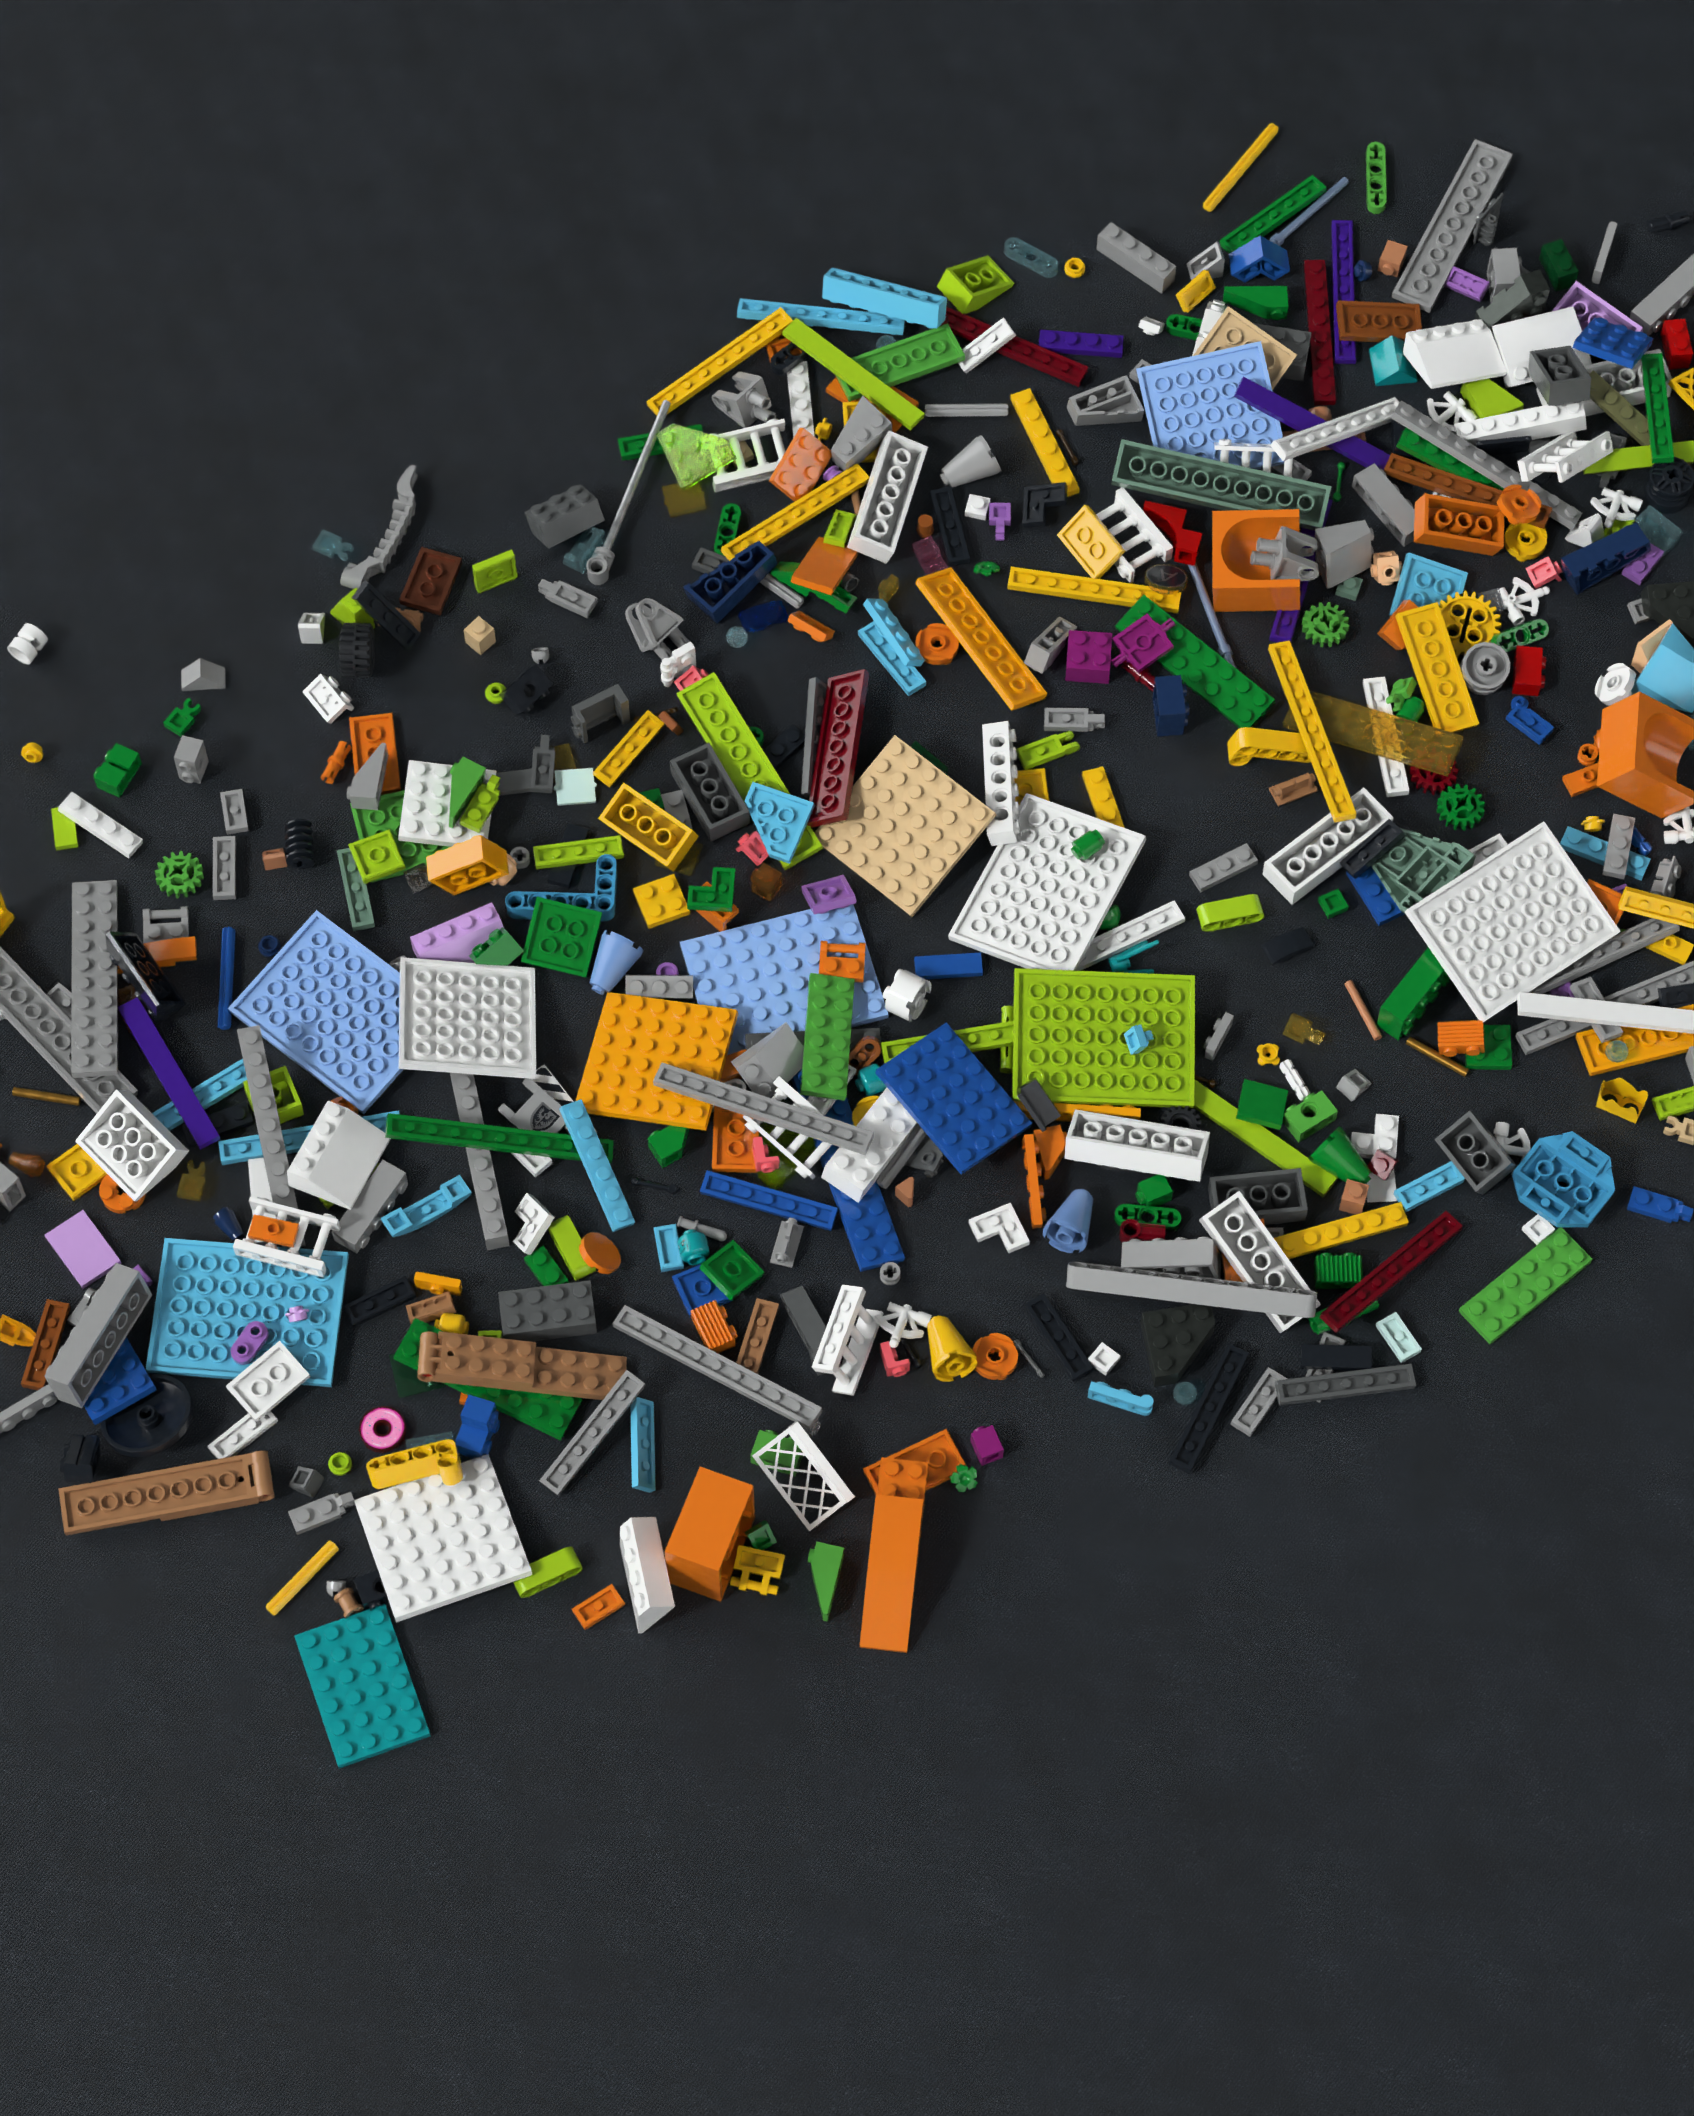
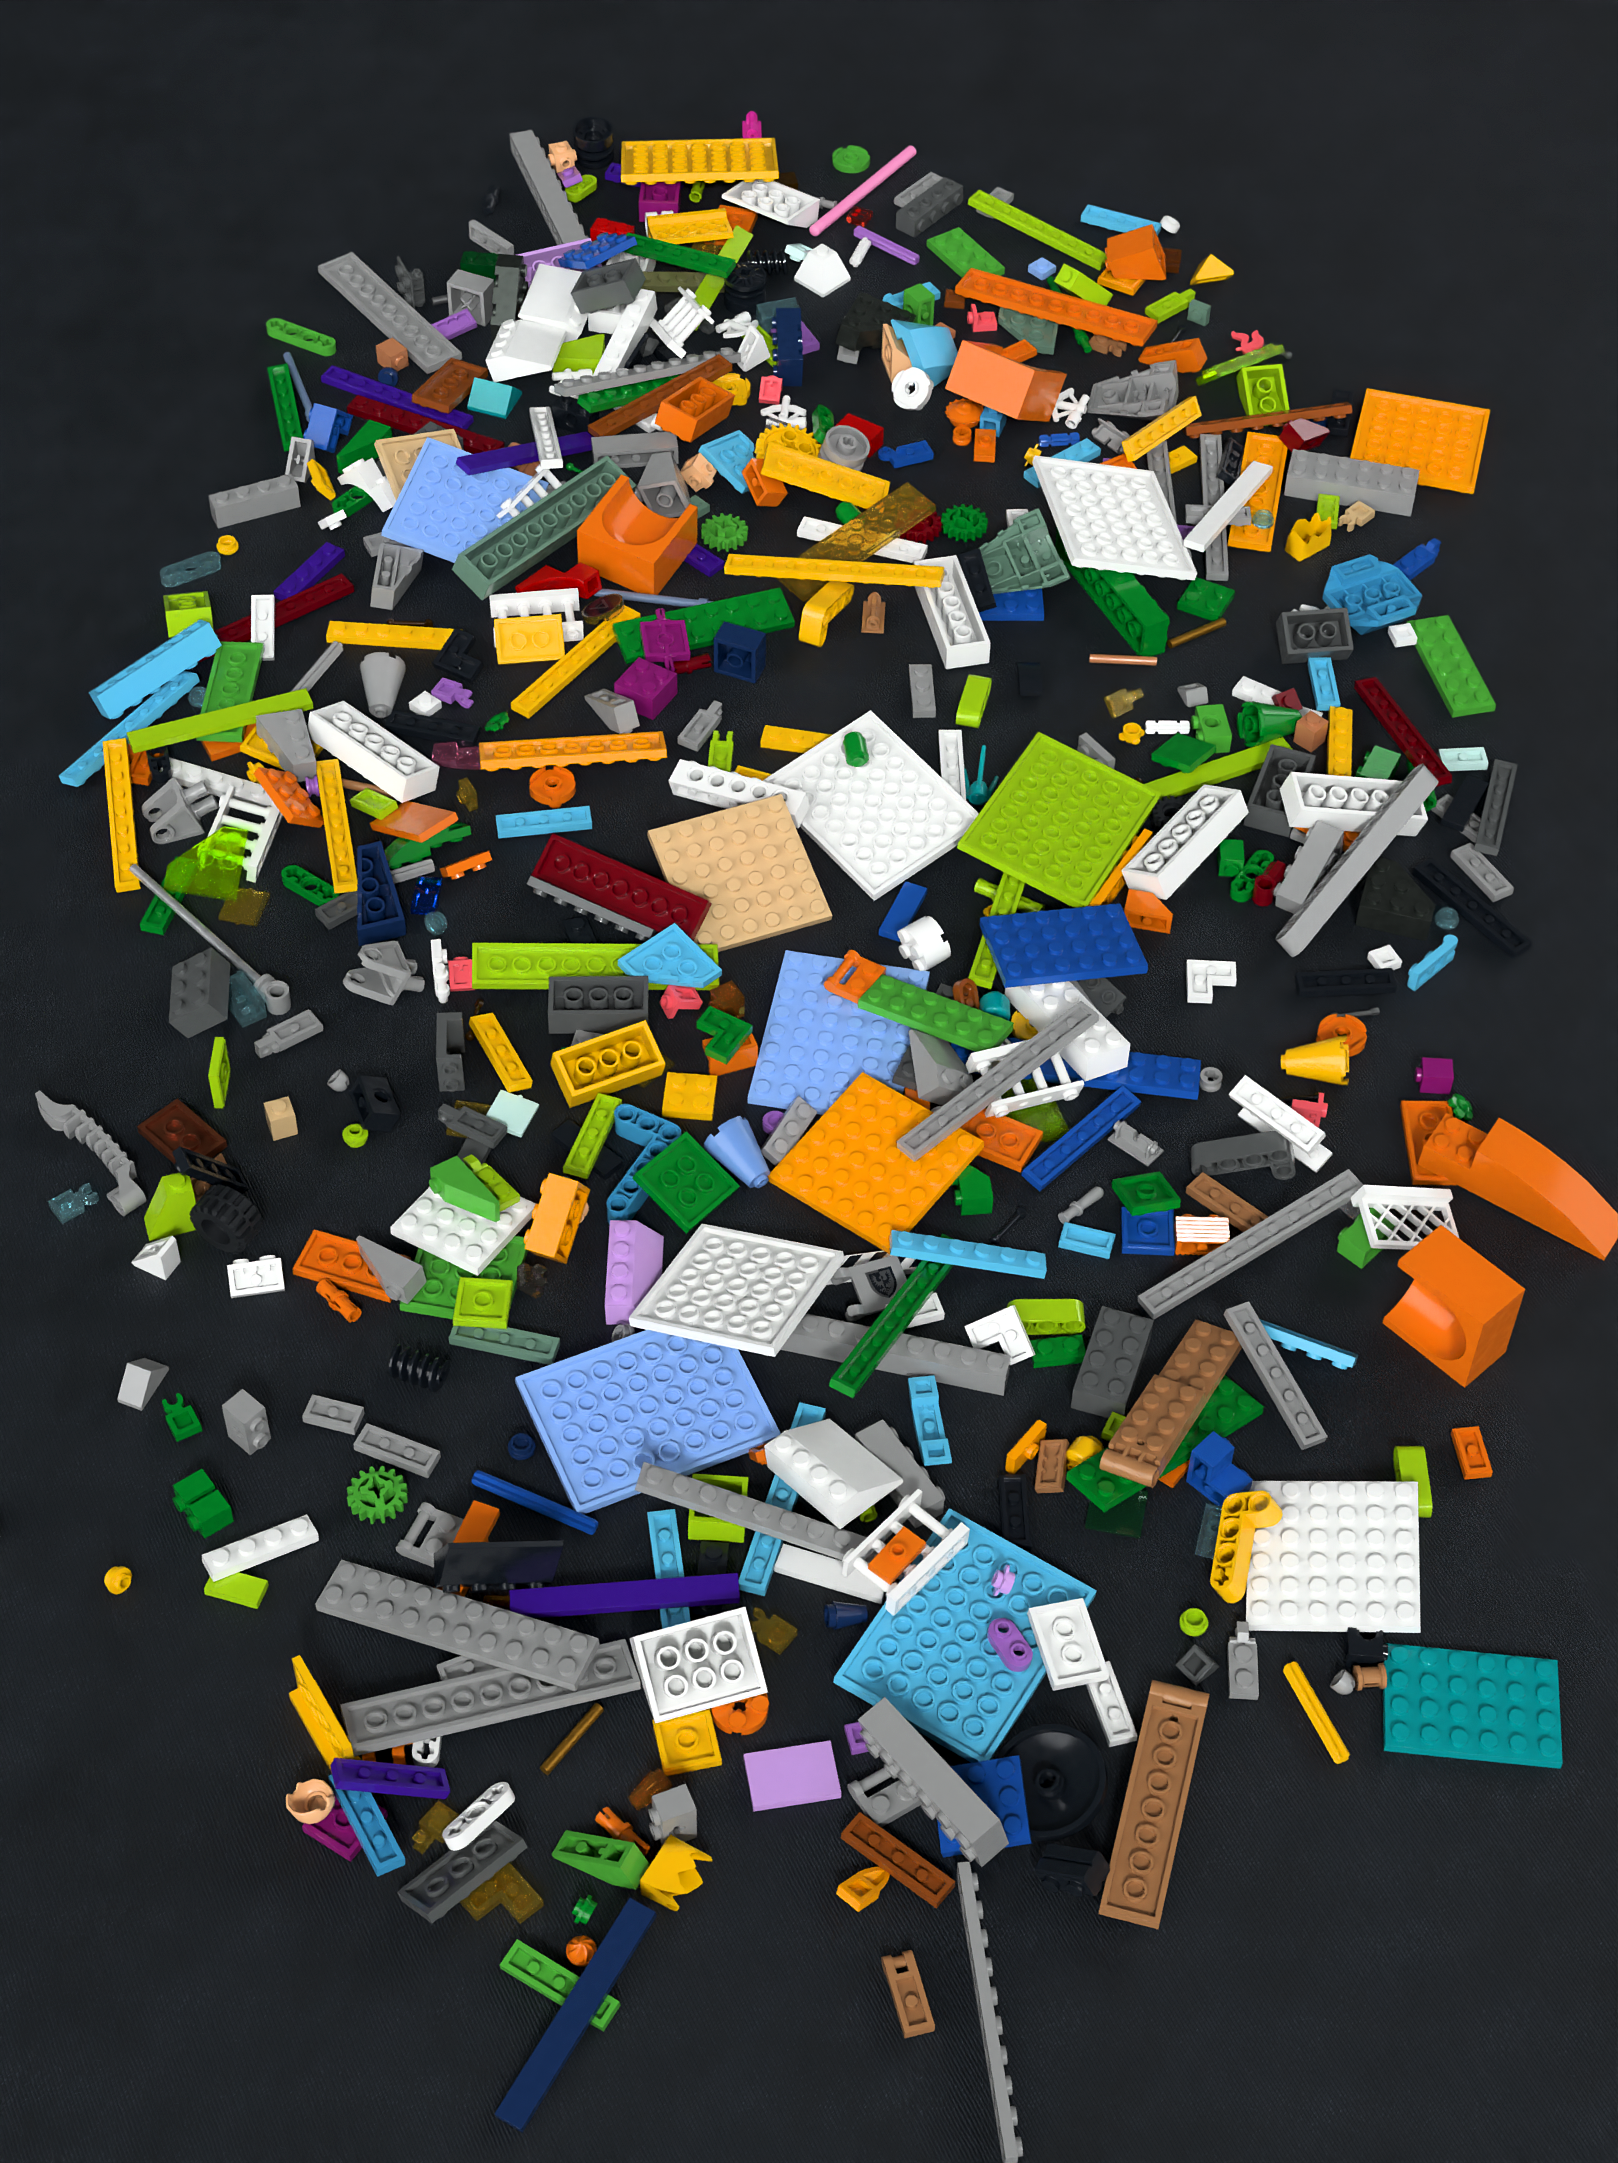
camera: 65 degrees left, 15 degrees down
(274, 859) = (415, 1401): nougat slope -> none
(382, 1416) = (1170, 1553): tile -> none
(497, 950) = (664, 1239): green slope -> none
(600, 1253) = (1070, 1291): orange tile -> none
(645, 1571) = (1468, 1384): white slope -> none
(671, 723) = (498, 1007): dark orange tile -> none
(693, 1247) = (1102, 1214): teal head -> none
(761, 1157) = (1036, 1117): coral bracket -> none
(825, 1569) = (1521, 1251): bright green slope -> none
(828, 894) = (774, 960): medium lavender plate -> none
(894, 632) = (528, 805): medium azure plate -> none
(905, 1191) = (1133, 1029): nougat slope -> none
(905, 1314) = (1270, 1080): white piece -> none
(925, 526) = (420, 742): dark orange piece -> none
(1036, 1191) = (1173, 932): orange wing -> none
(1038, 1103) = (1104, 889): black panel -> none
(1071, 1222) = (1234, 923): medium blue cone -> none
(1137, 1039) = (1083, 792): medium azure tile -> none
(1240, 167) = (217, 408): yellow axle -> none
(1287, 556) = (656, 510): light grey piece -> none
(1333, 903) = (1006, 635): green plate -> none
(1401, 690) = (827, 511): bright green plate -> none
(1461, 1038) = (1196, 601): orange brick -> none
(1514, 512) = (706, 364): orange plate -> none
(1618, 846) = (1066, 445): light grey plate -> none

